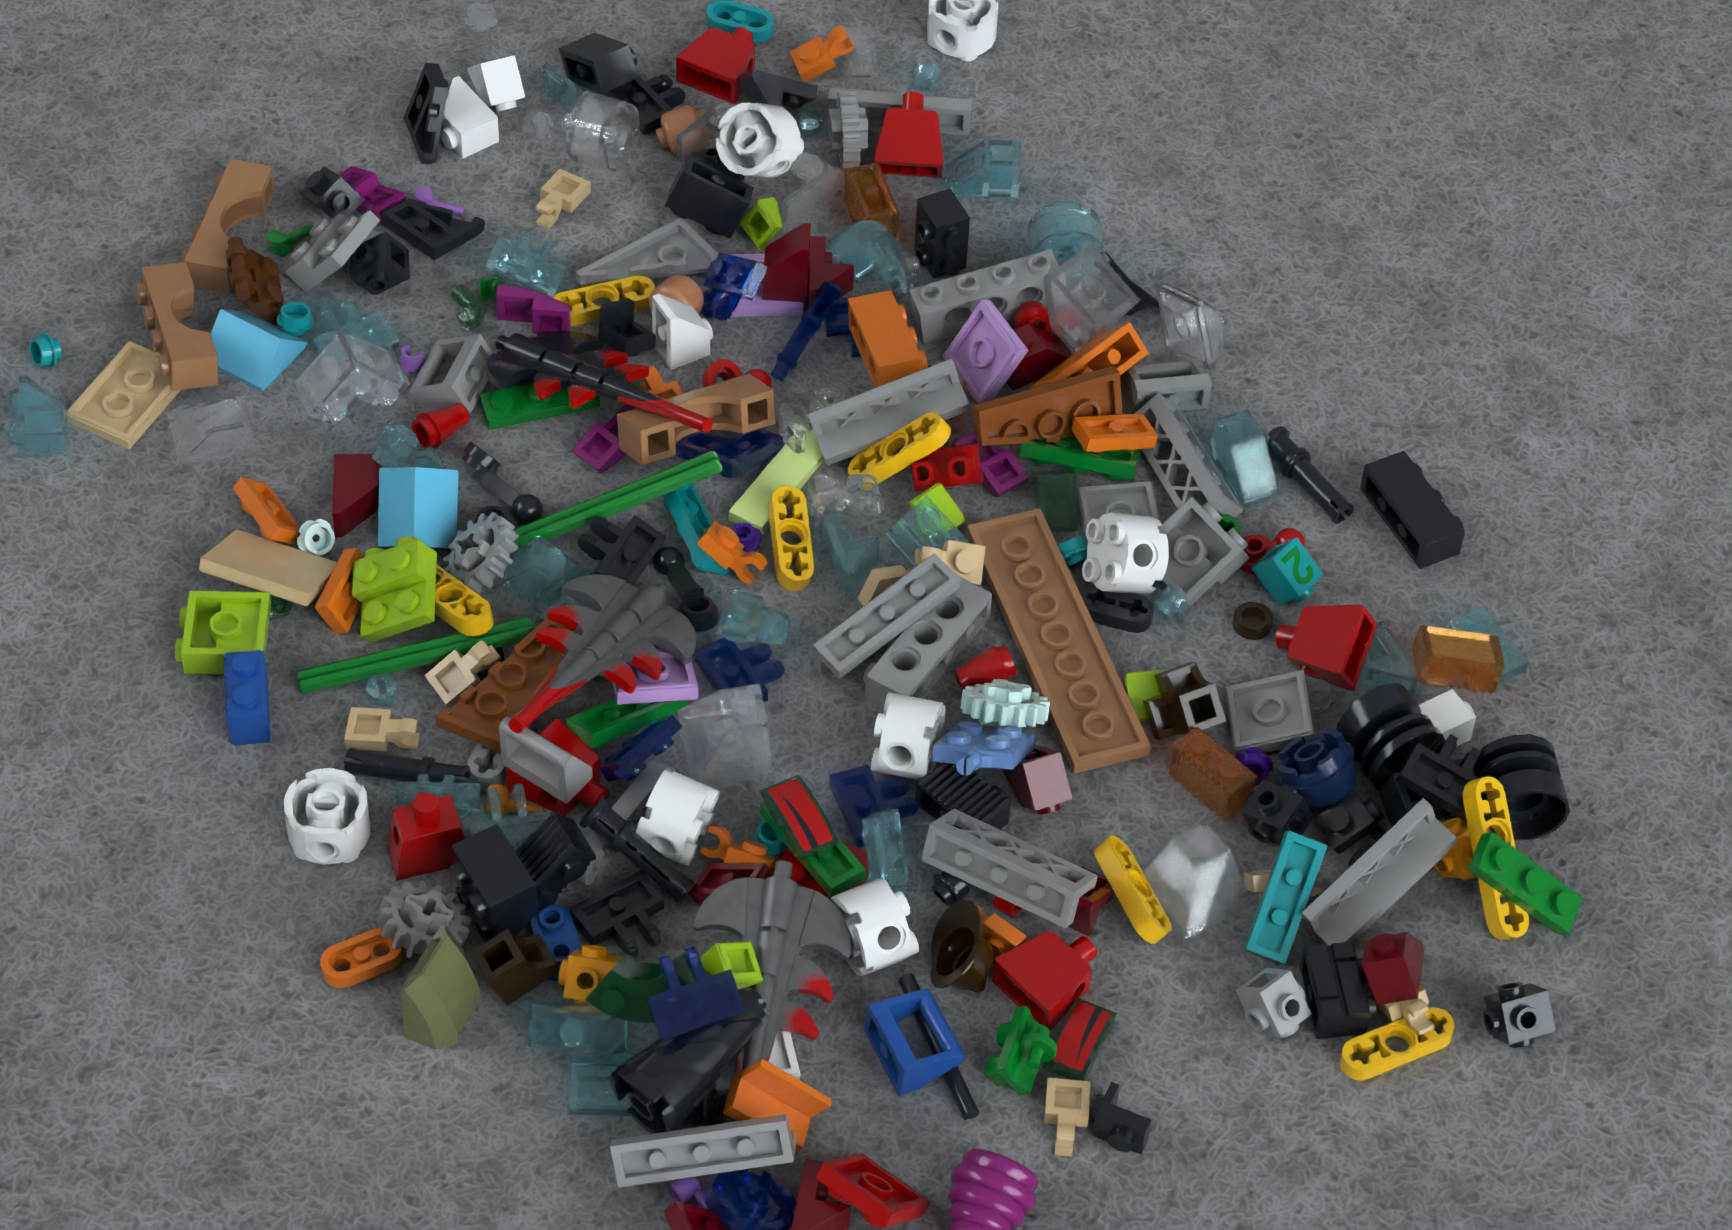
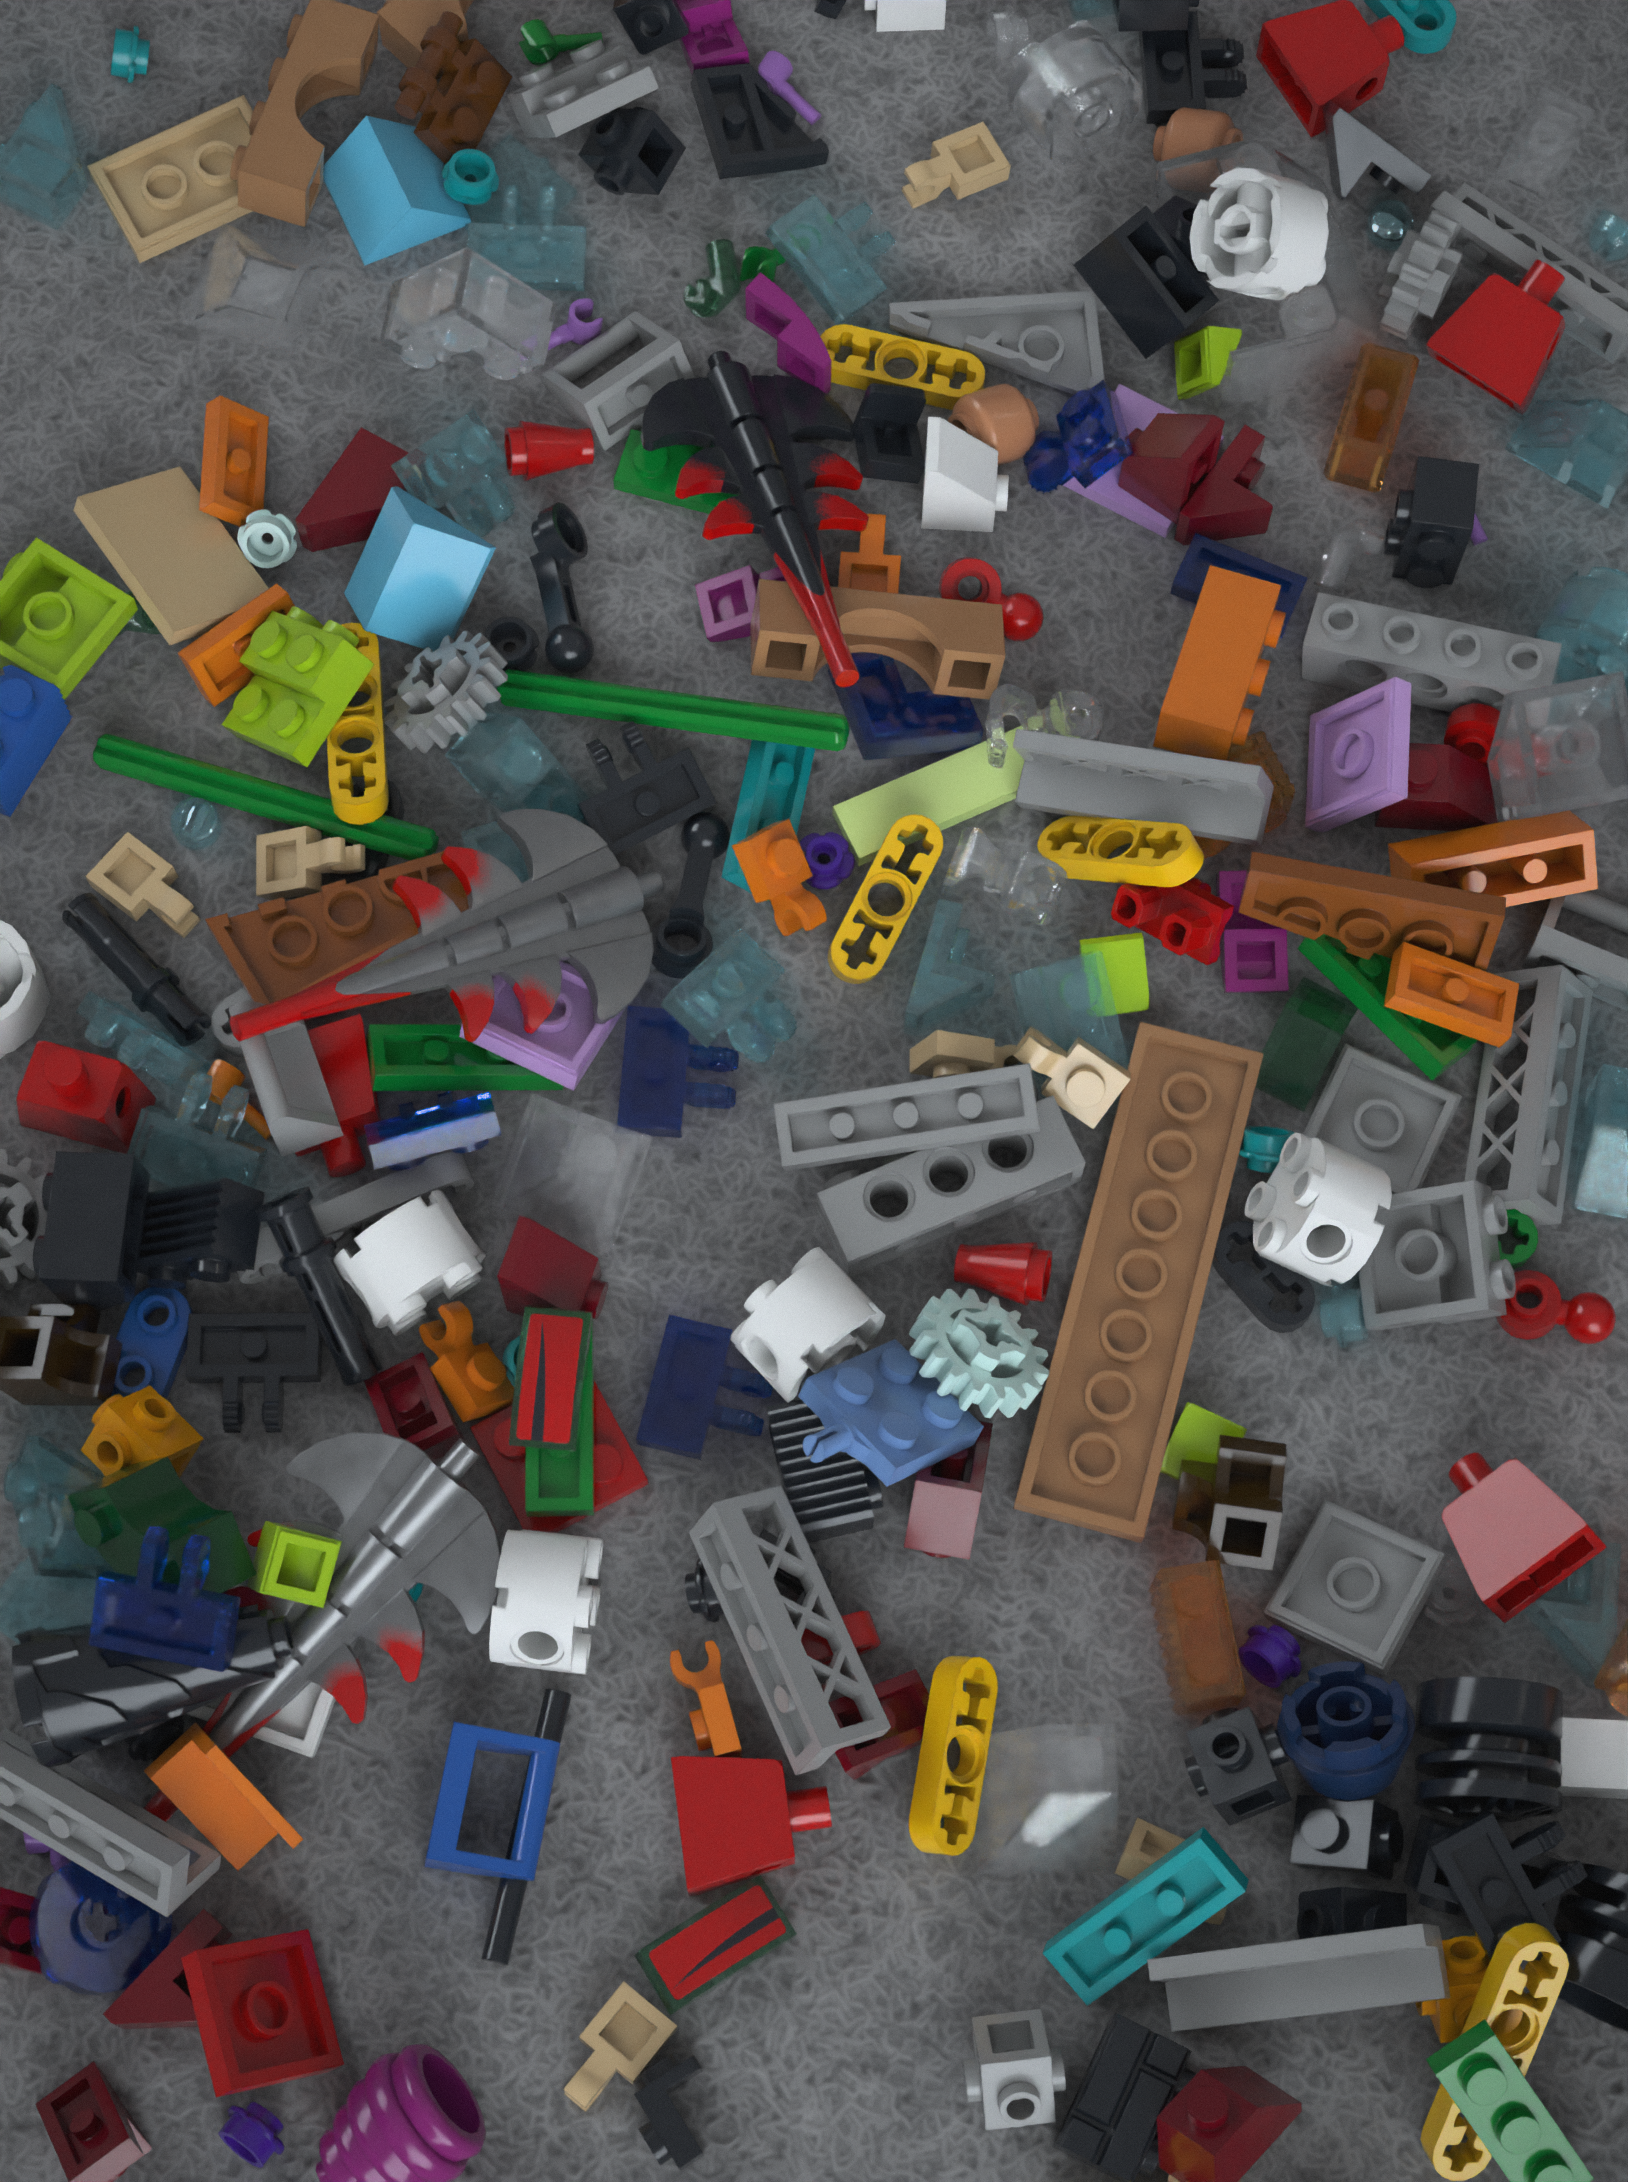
camera: 35 degrees right, 20 degrees up
(745, 779) = (549, 1272): none -> dark red slope
(806, 329) = (1139, 572): clear blue piece -> none
(817, 55) = (1476, 117): orange plate -> none
(870, 249) = (1311, 496): clear light blue brick -> none
(885, 848) = (649, 1490): clear light blue hinge -> none
(959, 950) = (644, 1709): dark brown piece -> none
(1023, 1048) = (617, 1918): green hips -> none
(1252, 620) = (1447, 1411): dark brown tile -> none
(1288, 572) = (1544, 1371): teal brick -> none

